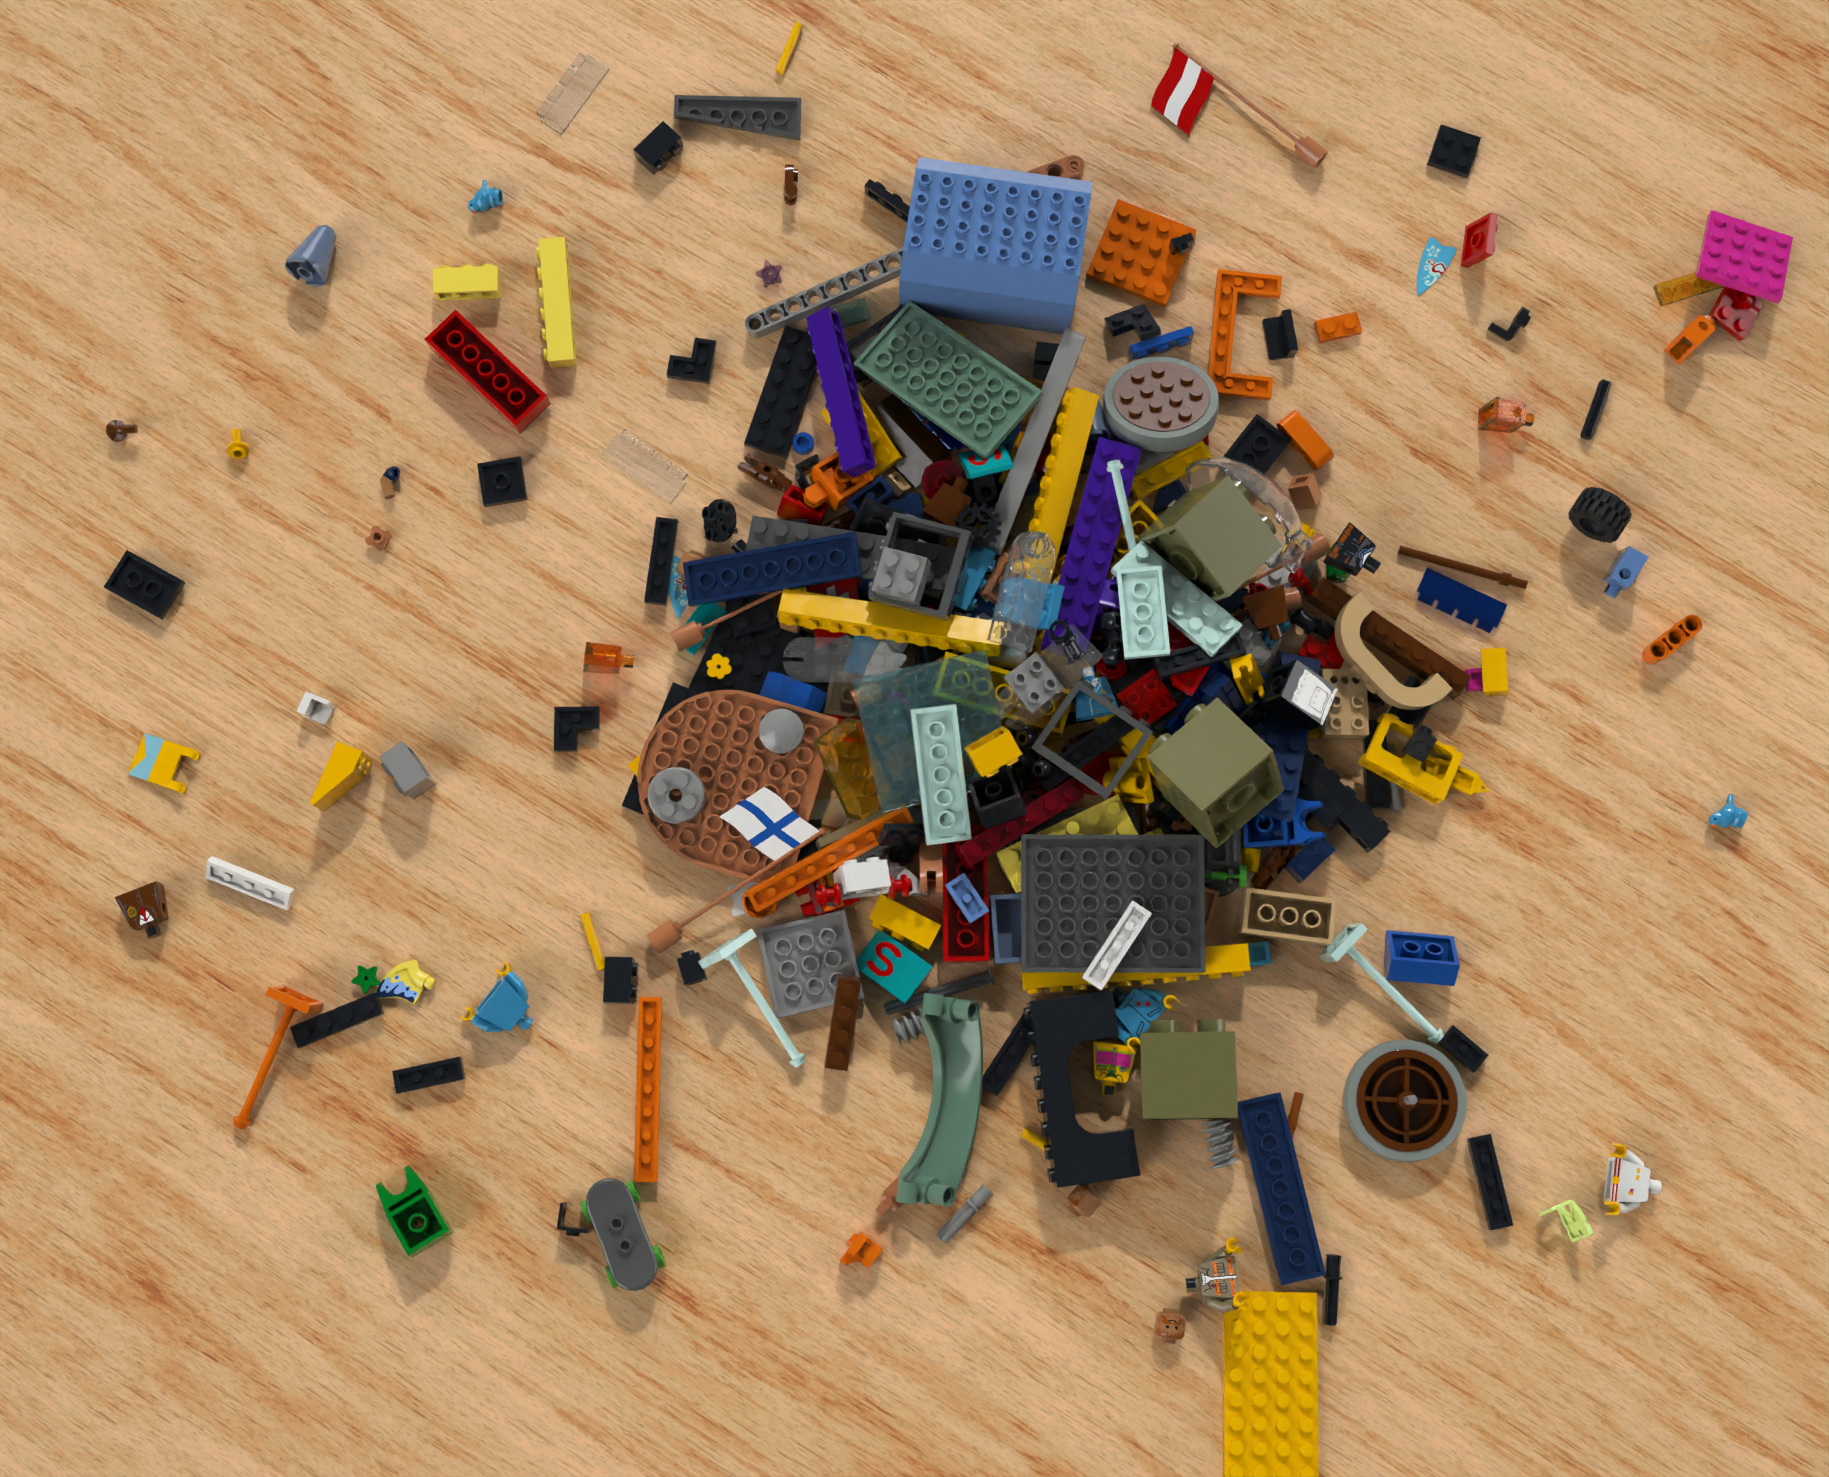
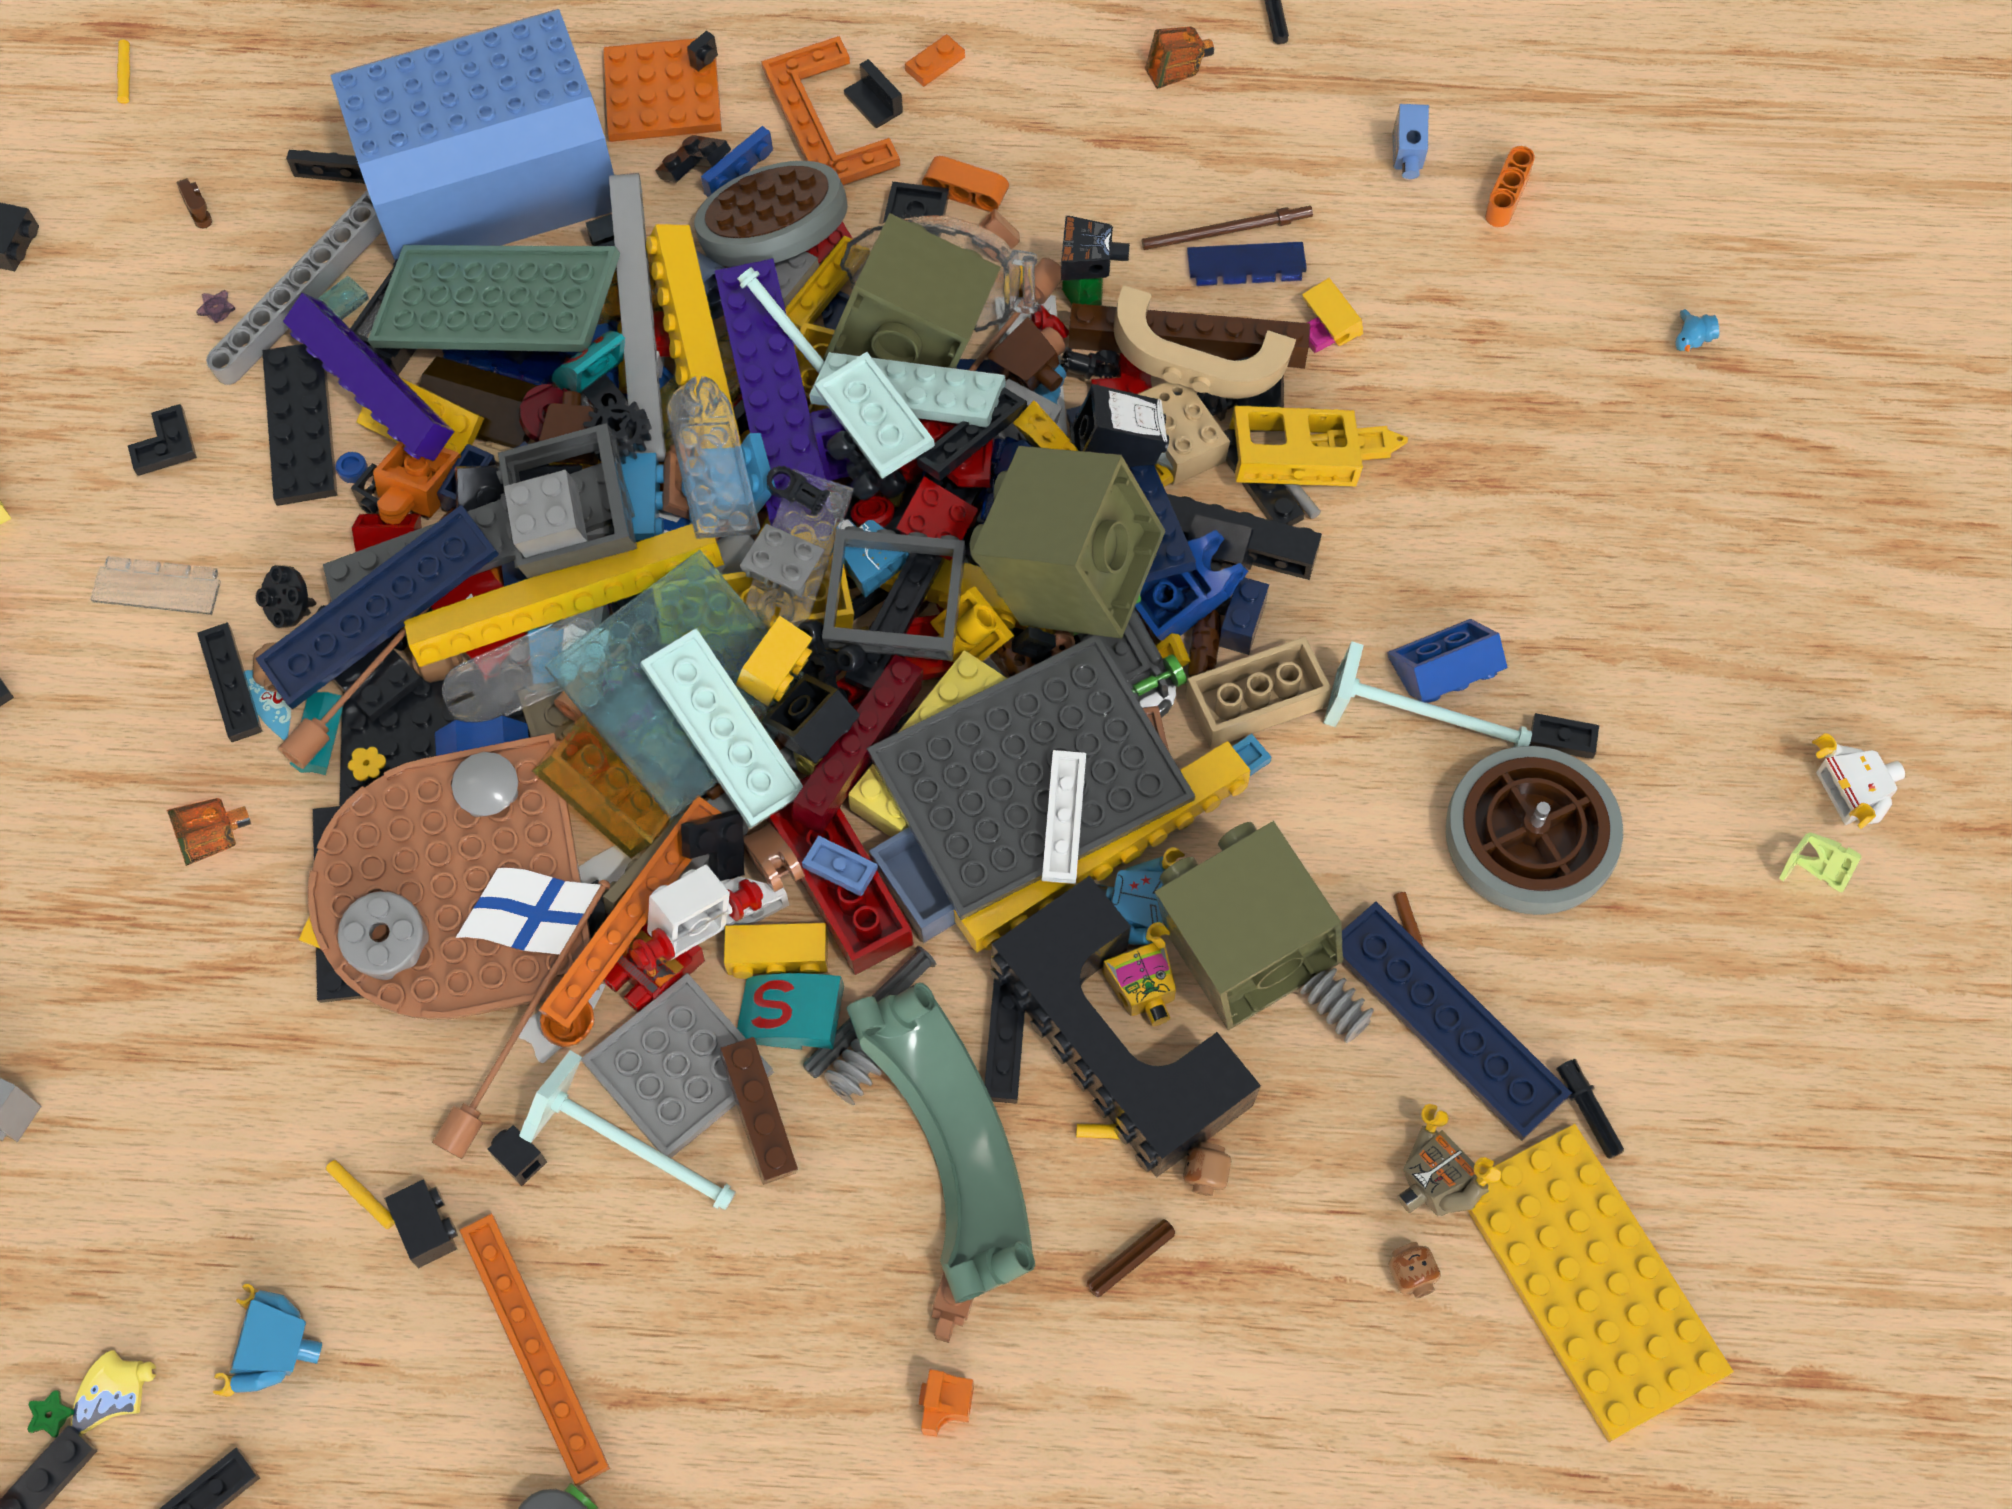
camera: 25 degrees left, 15 degrees down
(568, 722) = (194, 932): black plate -> none
(753, 114) = (110, 153): dark grey wing -> none
(764, 473) = (317, 520): reddish brown hinge -> none
(964, 1213) = (1059, 1276): light grey axle -> none
(1011, 1226) = (1130, 1258): none -> reddish brown axle
(1420, 743) = (1295, 415): black bracket -> none
(1489, 1182) = (1698, 872): black plate -> none
(1600, 514) = (1347, 96): black tyre -> none

